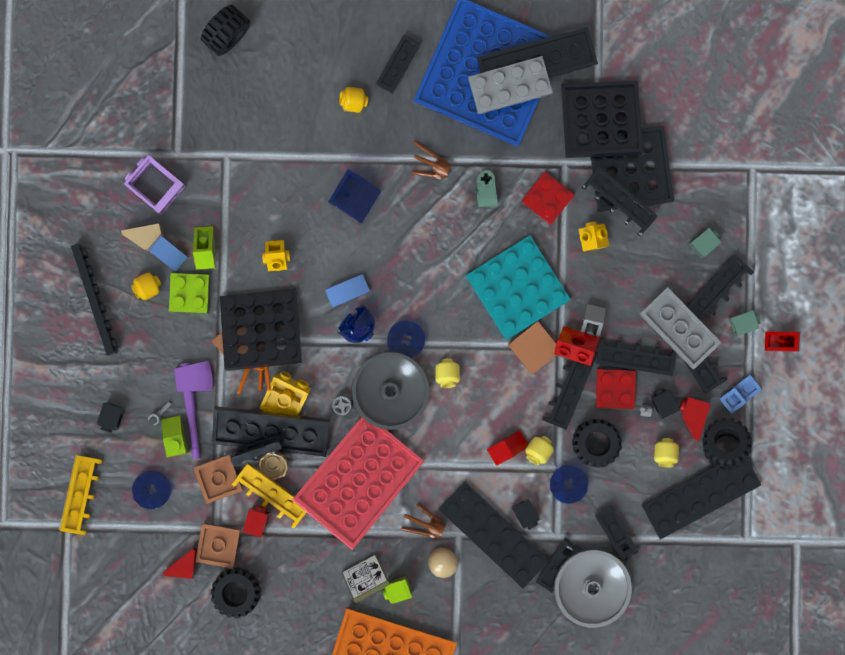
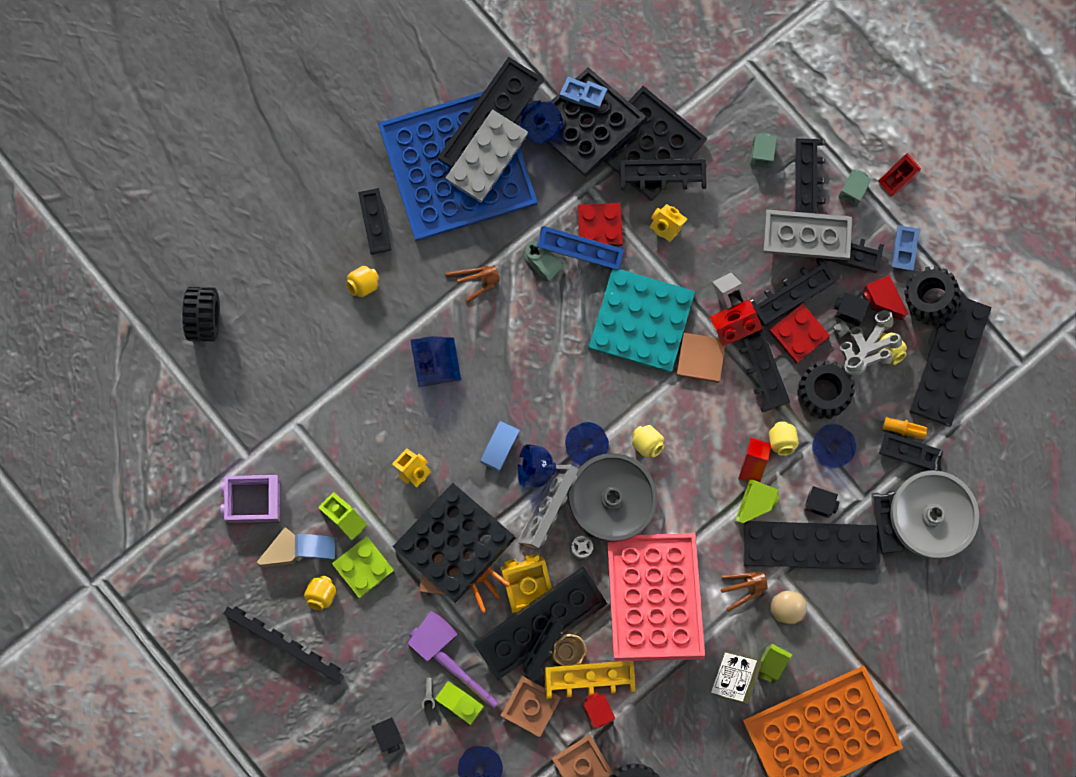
camera: 45 degrees left, 10 degrees down
(341, 359) = (545, 510): none -> light grey plate
(483, 476) = (756, 501): none -> lime slope
(518, 203) = (579, 248): none -> blue plate
(576, 100) = (542, 110): none -> clear blue plate
(616, 97) = (582, 93): none -> medium blue slope
(627, 514) = (904, 428): none -> light orange axle
(630, 445) = (857, 363): none -> light grey plant

